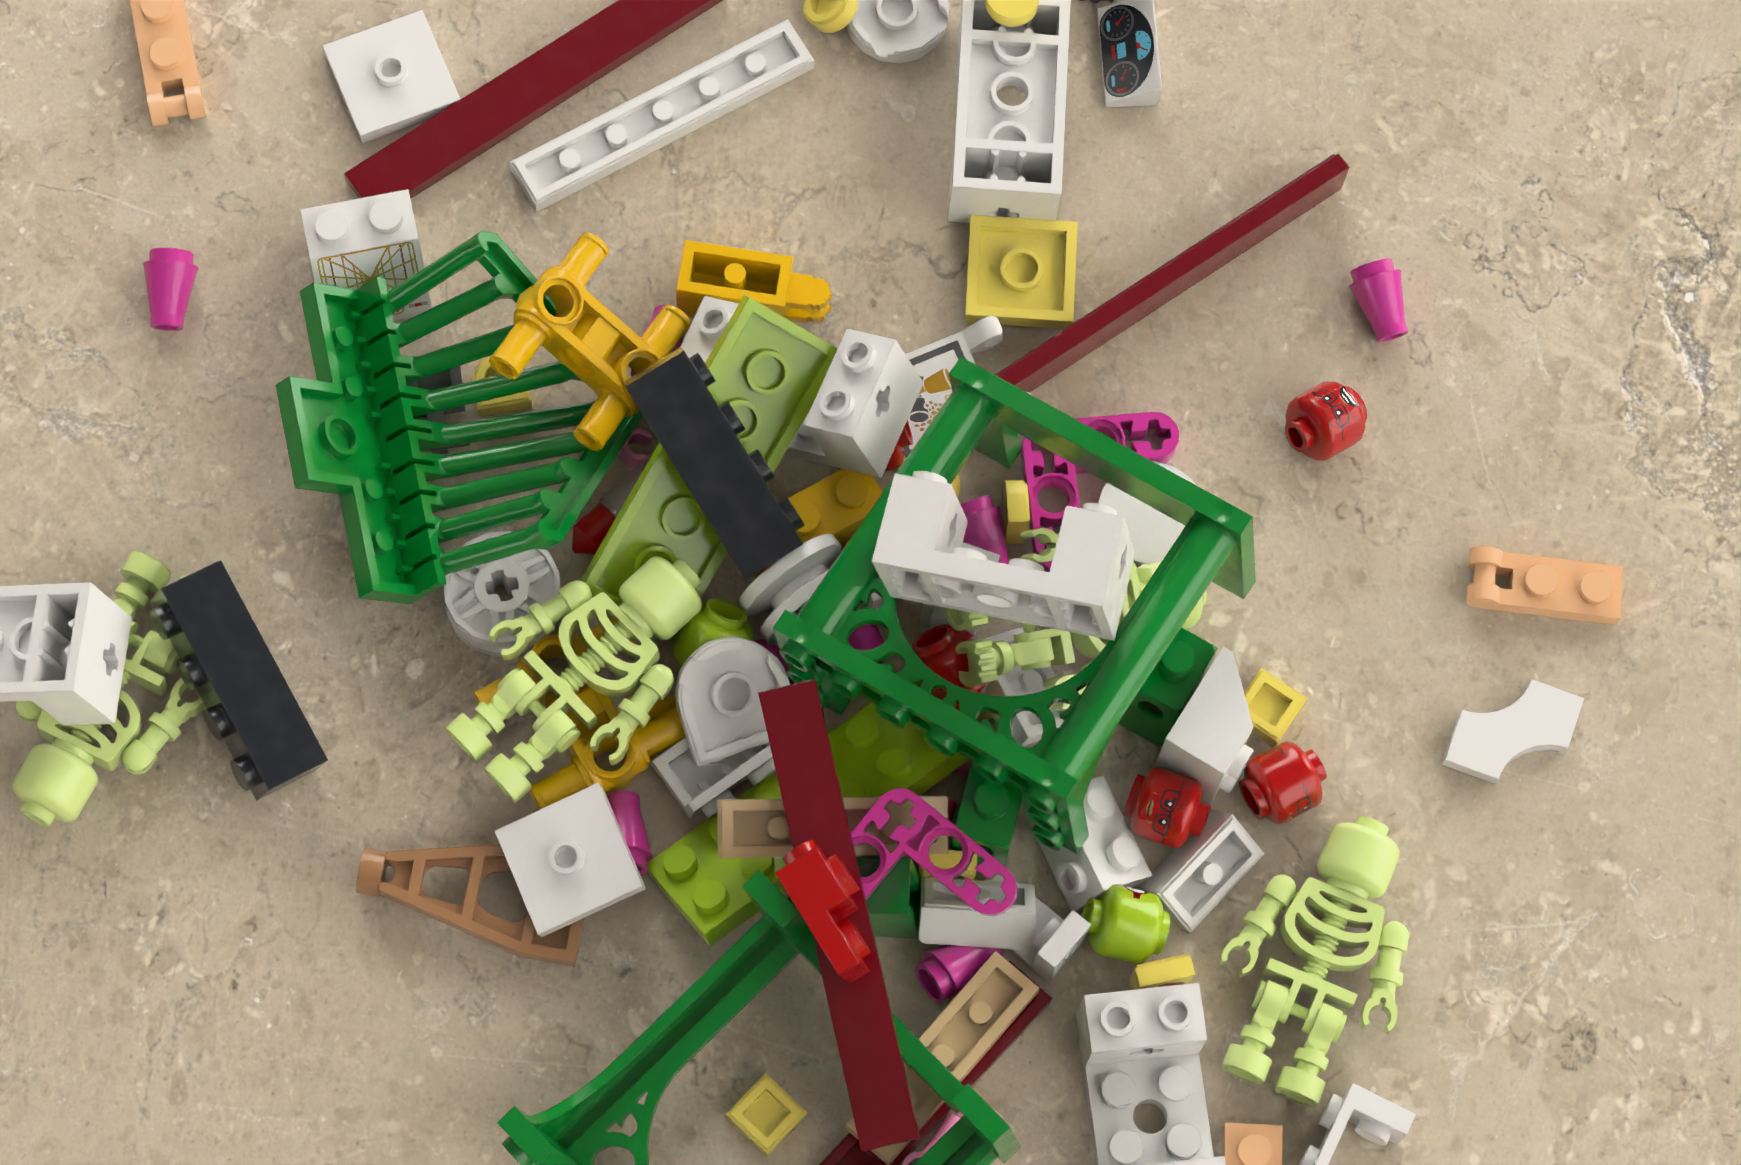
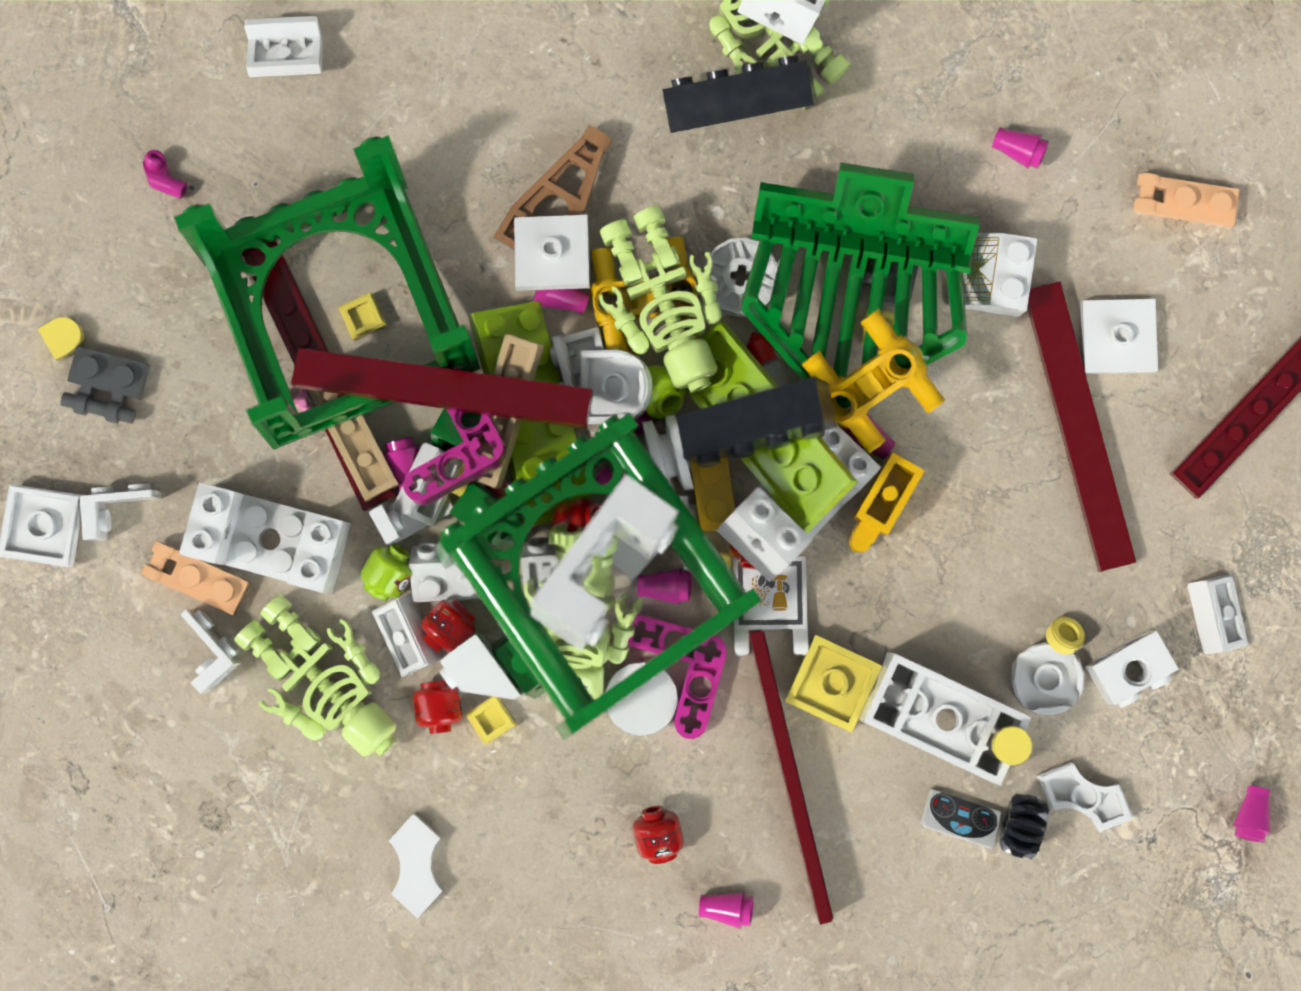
camera: 120 degrees right, 15 degrees up
(661, 115) = (1029, 499): white tile -> none
(823, 897) = (439, 367): red plate -> none
(1015, 510) = (675, 614): light yellow tile -> none
(1163, 972) = (348, 580): light yellow tile -> none
(1545, 586) = (499, 929): light nougat plate -> none

